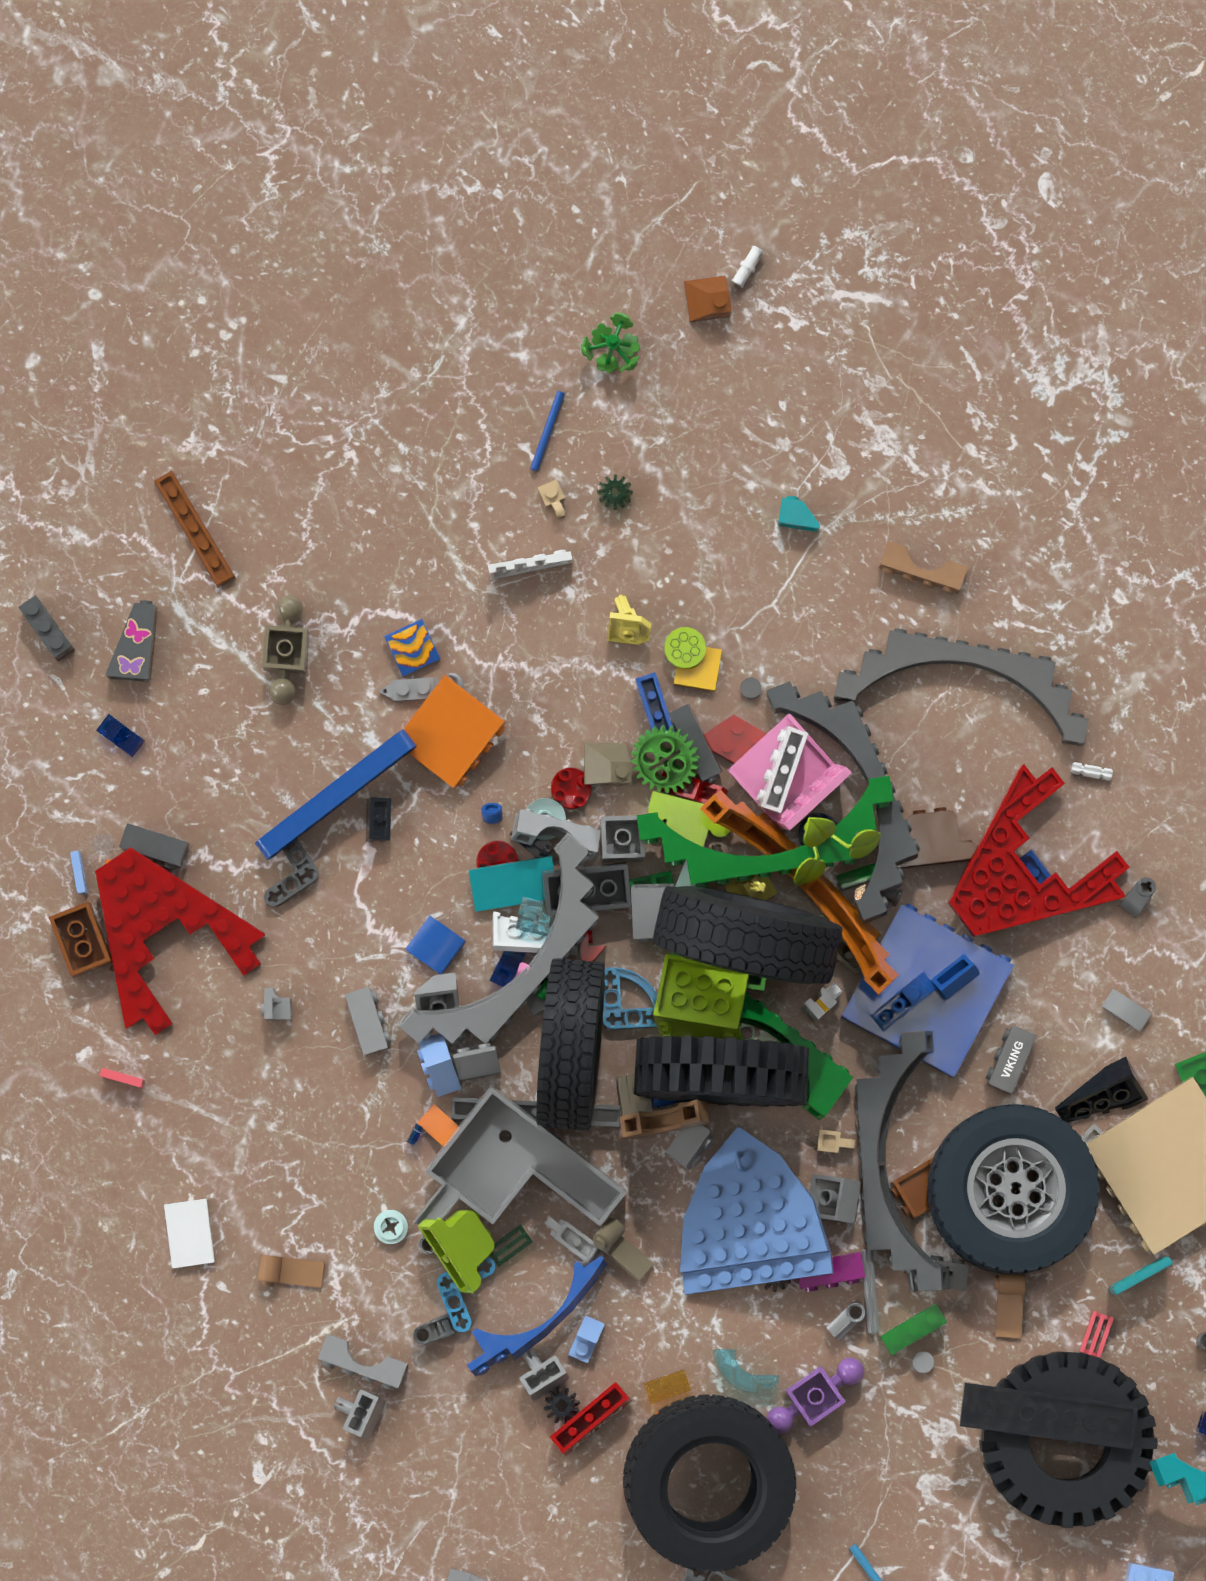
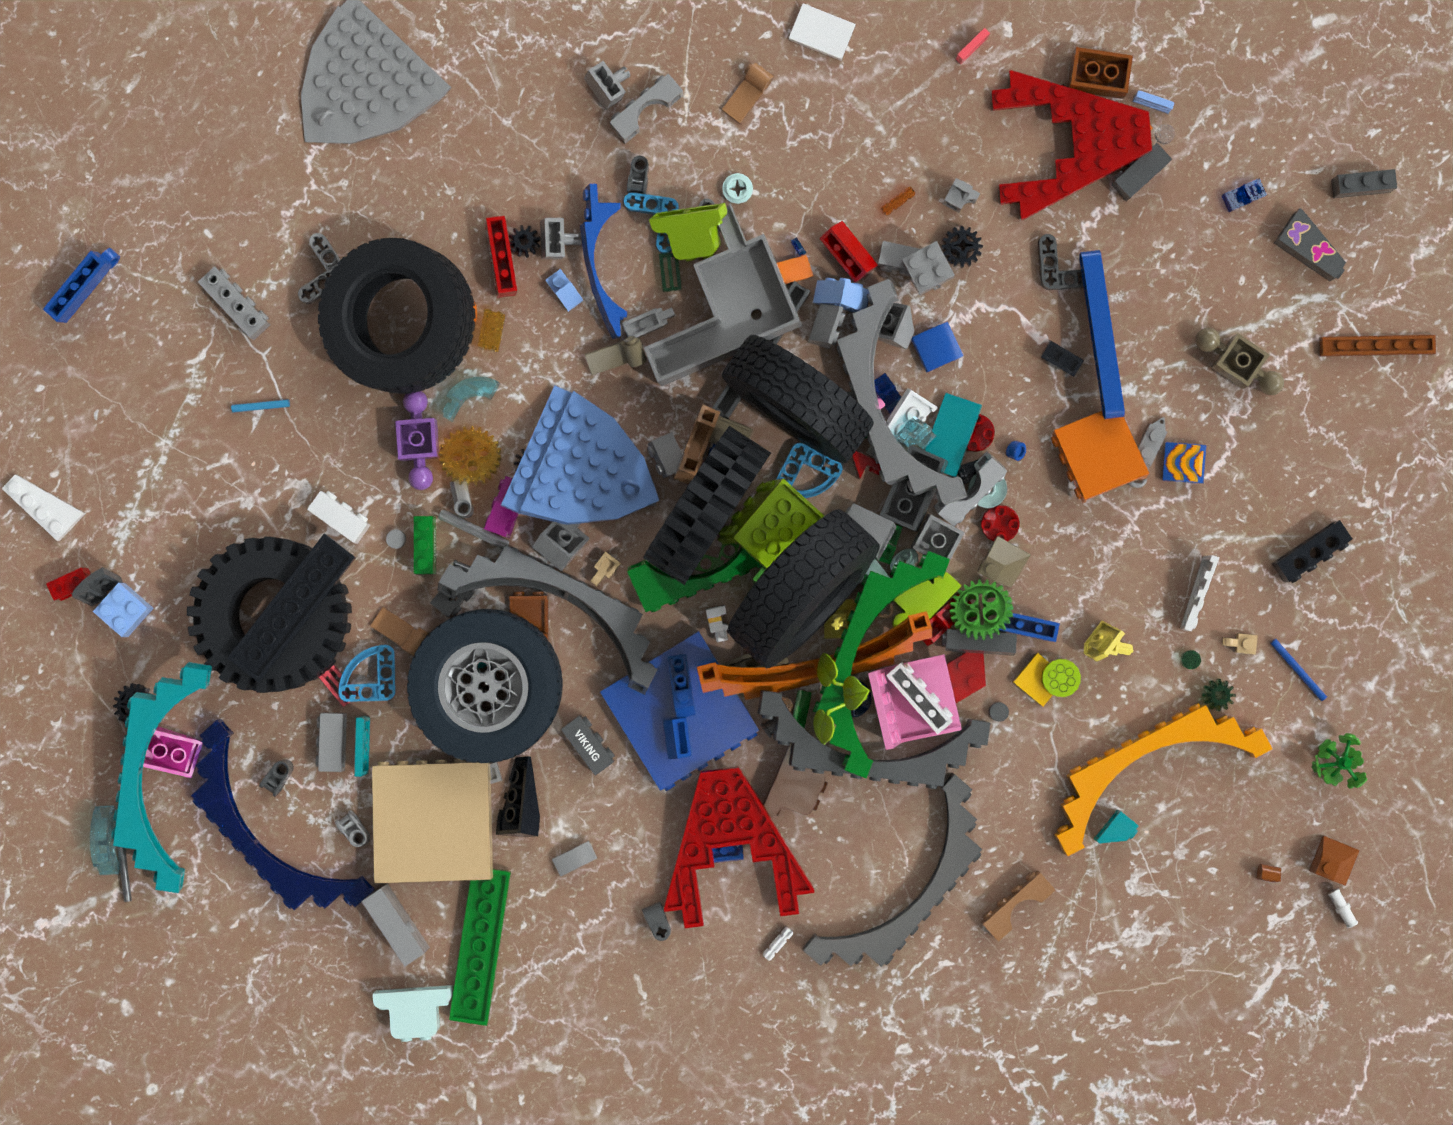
camera: 115 degrees right, 5 degrees up
(314, 1063) = (897, 201): none -> clear orange axle
(334, 971) = (970, 246): none -> black gear
(368, 995) = (928, 268): none -> light grey brick
(392, 1082) = (848, 251): none -> red brick
(454, 499) = (1285, 564): none -> black brick
(596, 536) = (1190, 659): none -> clear green tile
(652, 861) = (909, 555): none -> light aqua gear
(755, 352) = (1268, 873): none -> dark orange brick
(759, 563) = (1095, 776): none -> light orange arch
(801, 1355) = (455, 447): none -> clear yellow gear
(933, 1429) = (339, 516): none -> white brick
(1076, 1295) = (376, 688): none -> dark azure beam
(1154, 1309) = (331, 742): none -> light grey brick

